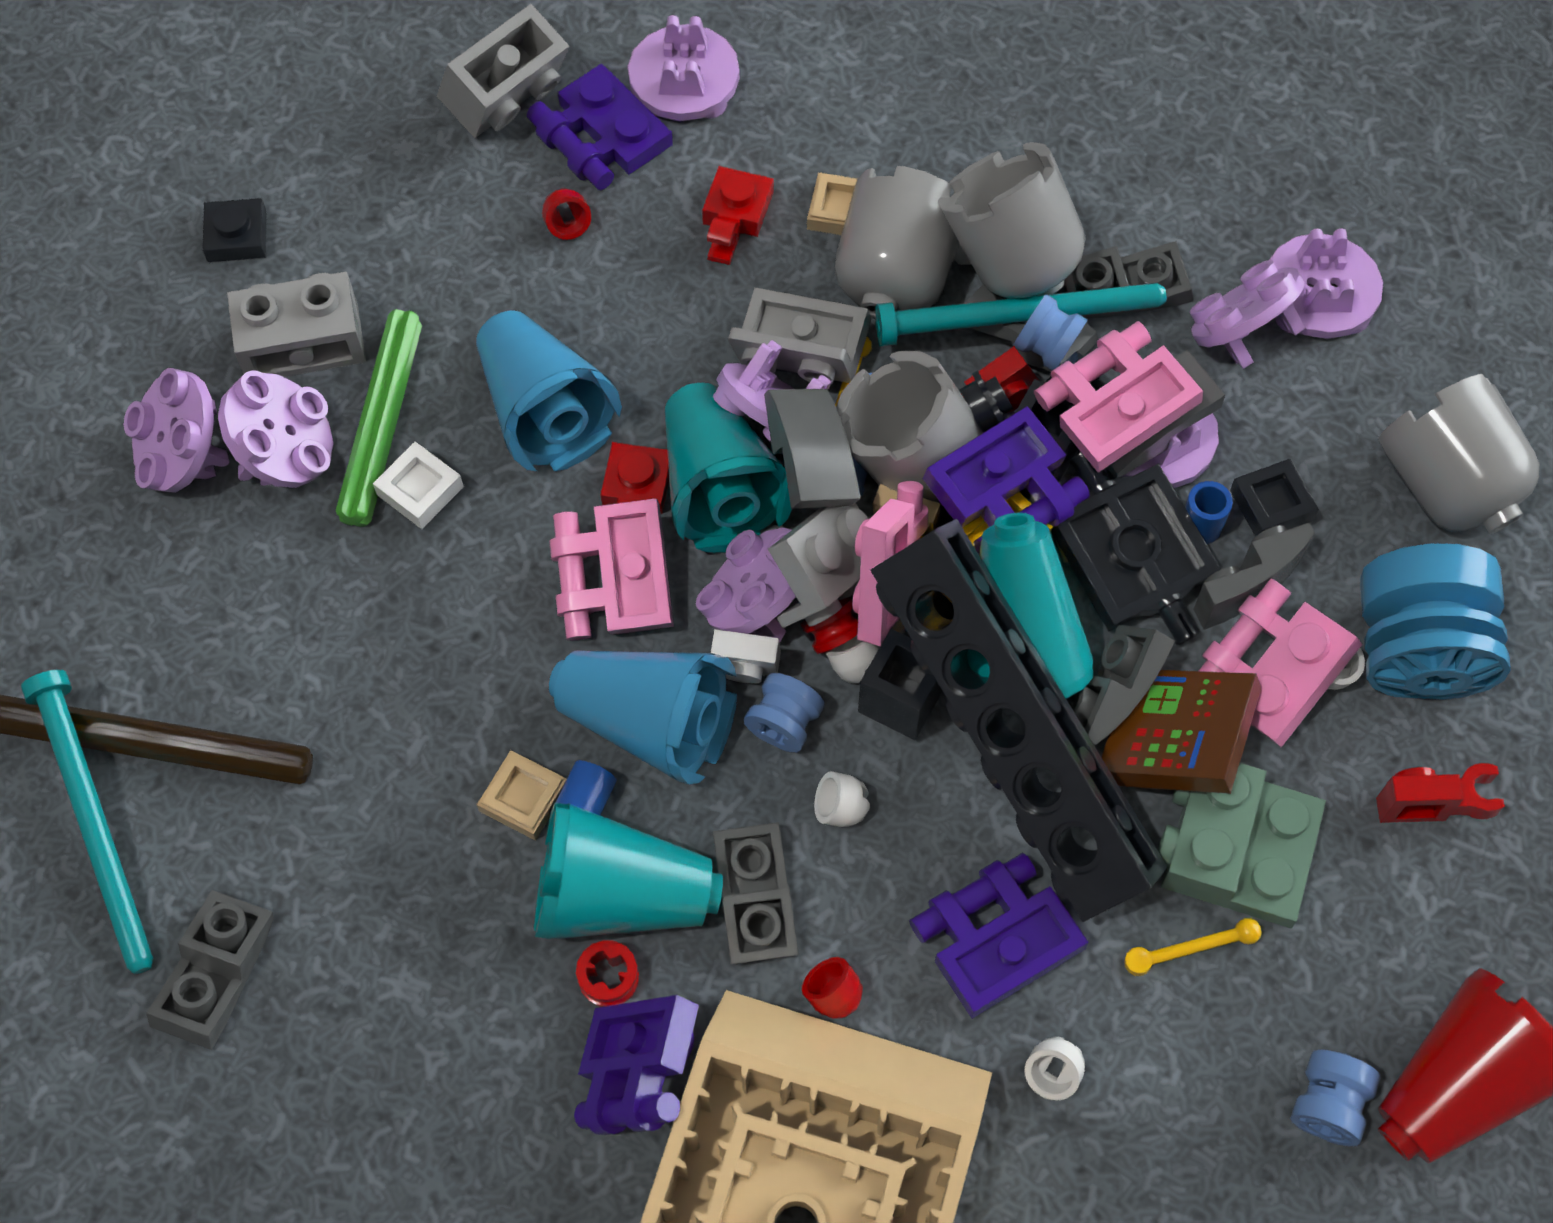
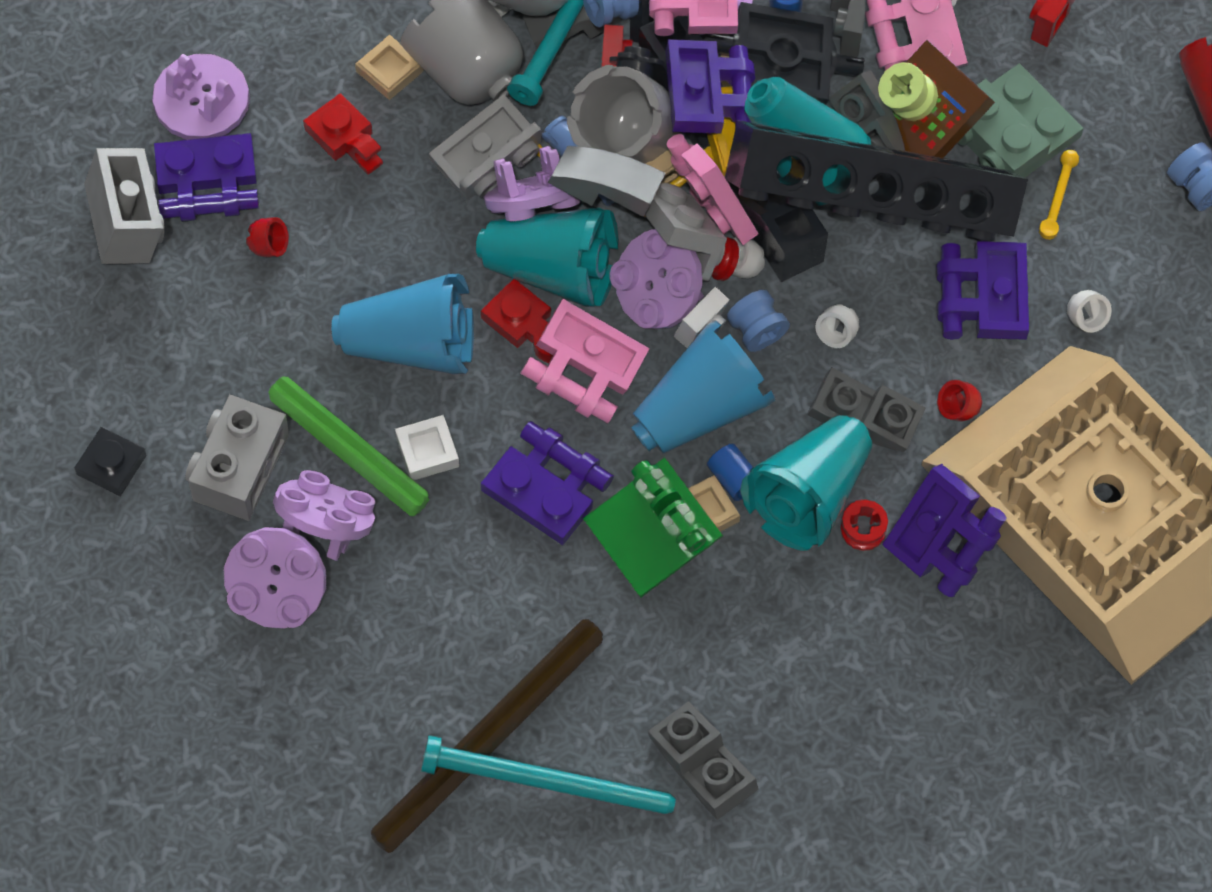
camera: 60 degrees left, 0 degrees up
(436, 616) = (538, 494): none -> dark purple plate
(460, 751) = (652, 526): none -> green hinge
(1171, 692) = (918, 98): none -> yellowish green wheel

